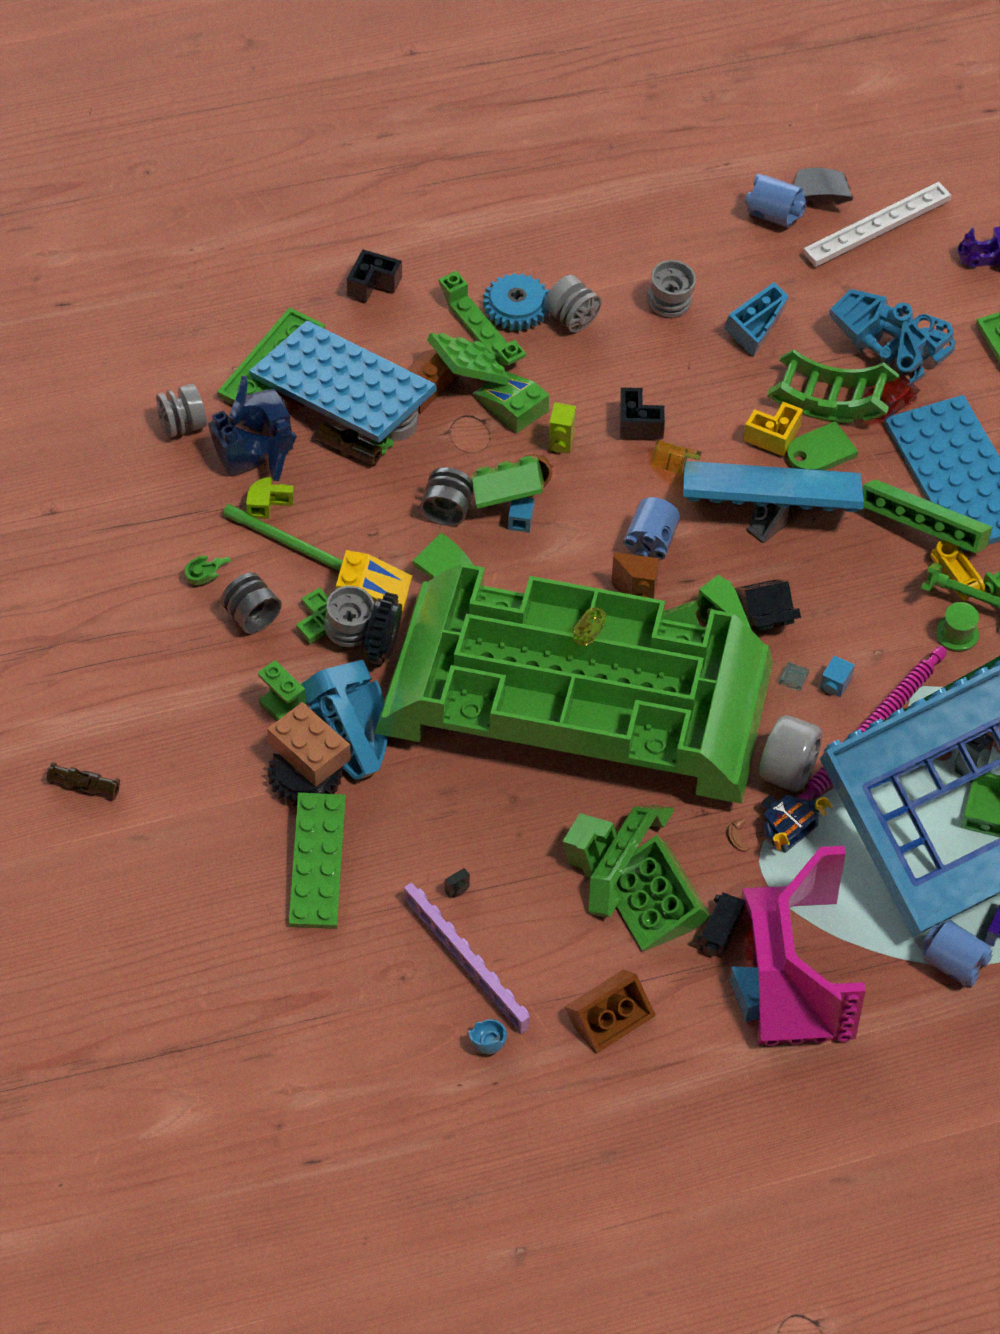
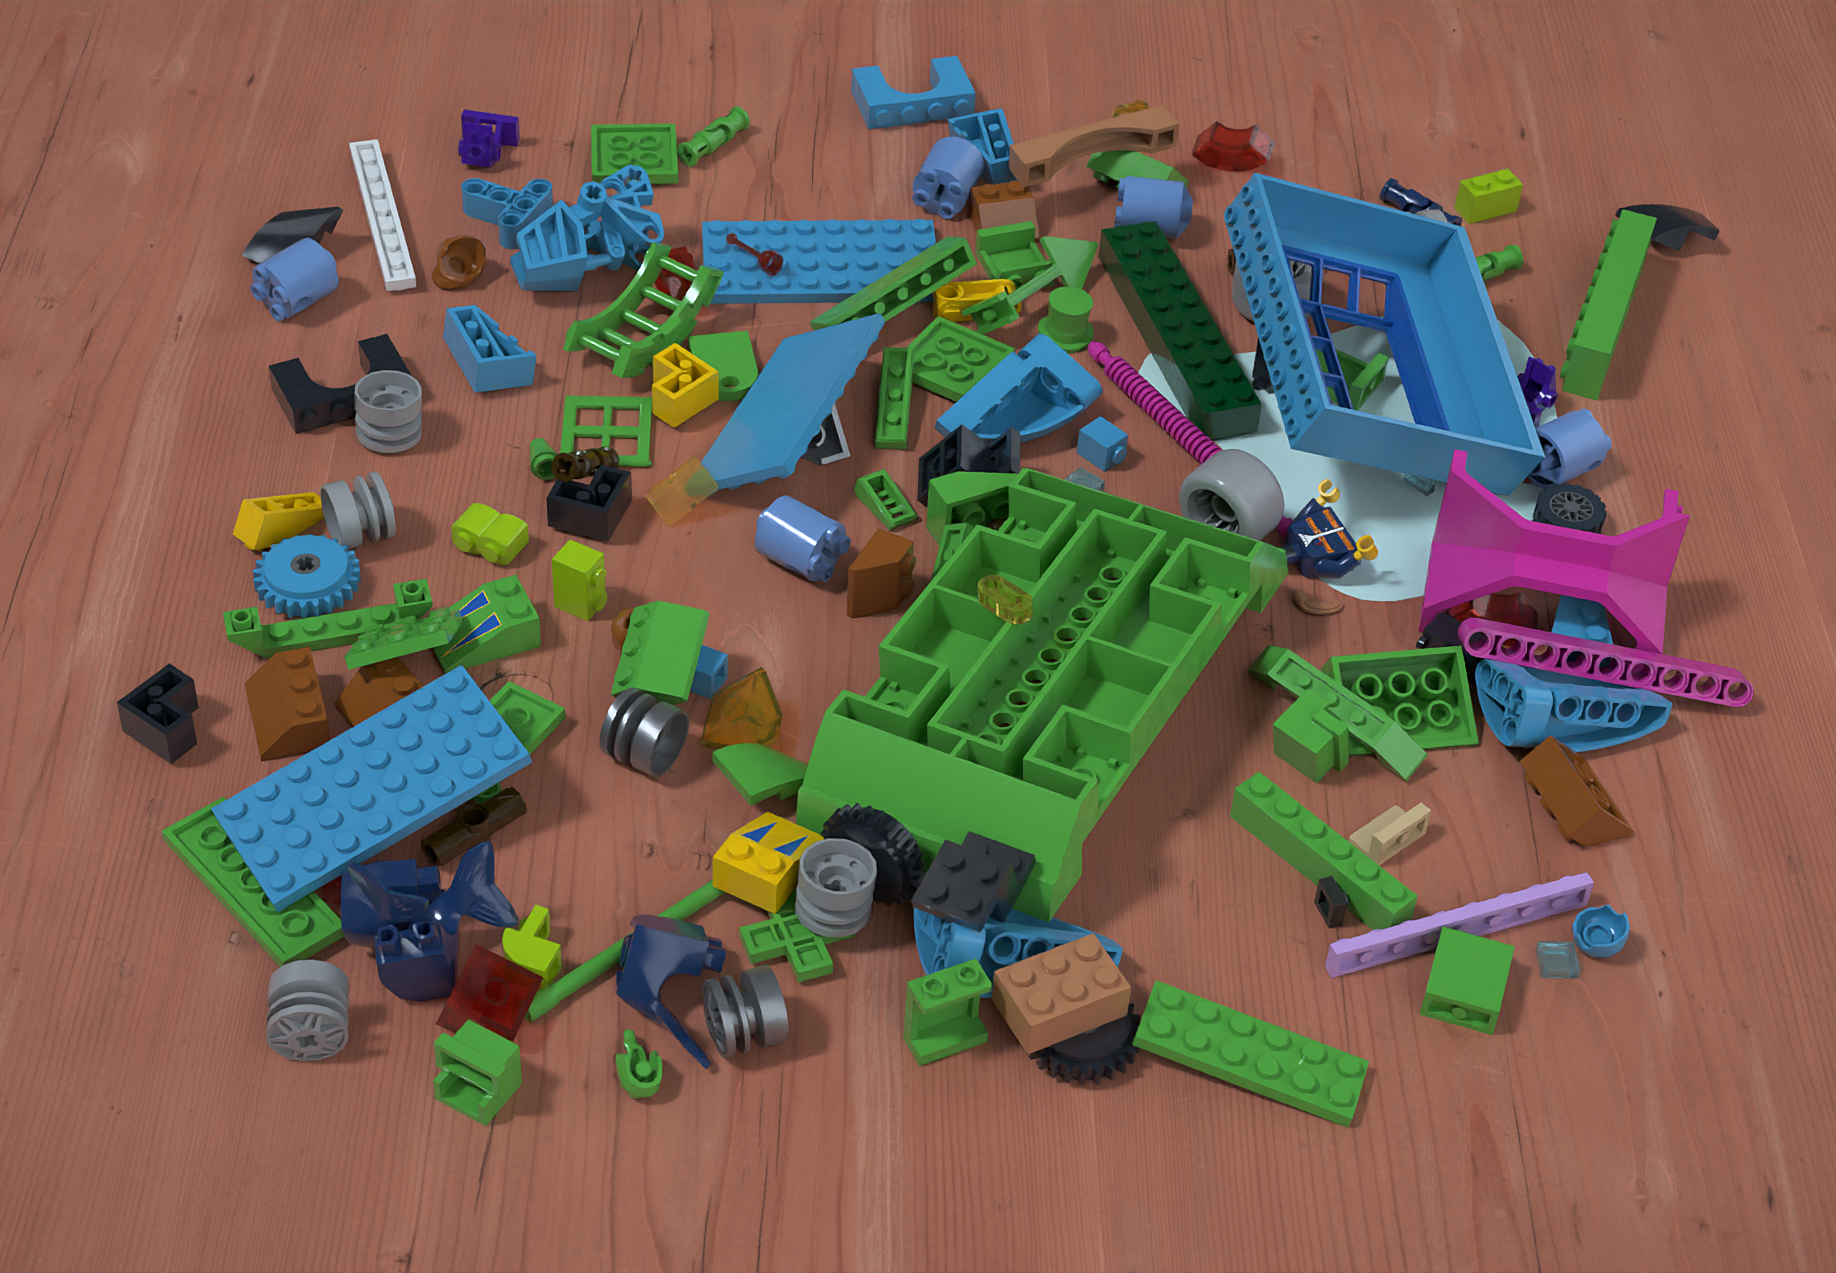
camera: 75 degrees left, 10 degrees down
(171, 497) = (476, 1072): none -> bright green plate
(222, 485) = (490, 994): none -> clear red slope
(278, 549) = (654, 954): none -> dark blue hips
(360, 672) = (974, 881): none -> black bracket
(409, 332) = (287, 705): none -> dark orange slope
(421, 964) = (1467, 980): none -> bright green panel
(442, 438) = (527, 714): none -> bright green plate
(461, 1019) = (1557, 959): none -> clear light blue tile
(489, 545) = (743, 713): none -> clear yellow slope
(493, 870) = (1321, 852): none -> bright green brick
(535, 909) = (1391, 832): none -> tan panel
(551, 267) = (276, 518): none -> yellow slope
(593, 376) = (490, 534): none -> lime brick
(658, 394) = (583, 463): none -> dark brown piece
(674, 382) = (541, 459): none -> bright green cone
(686, 987) = (1583, 713): none -> dark azure panel
(710, 280) = (316, 406): none -> black arch
(716, 389) = (643, 432): none -> bright green window
(729, 554) = (881, 481): none -> bright green slope
(732, 1005) = (1617, 672): none -> dark pink beam
(826, 548) = (894, 398): none -> bright green tile
(843, 277) = (459, 262): none -> dark orange hair
(850, 614) = (1025, 391): none -> dark azure panel
(885, 572) = (954, 358): none -> bright green plate
(899, 974) = (1570, 508): none -> black wheel
(917, 291) = (505, 206): none -> dark azure beam
(926, 438) = (763, 258): none -> clear red hinge

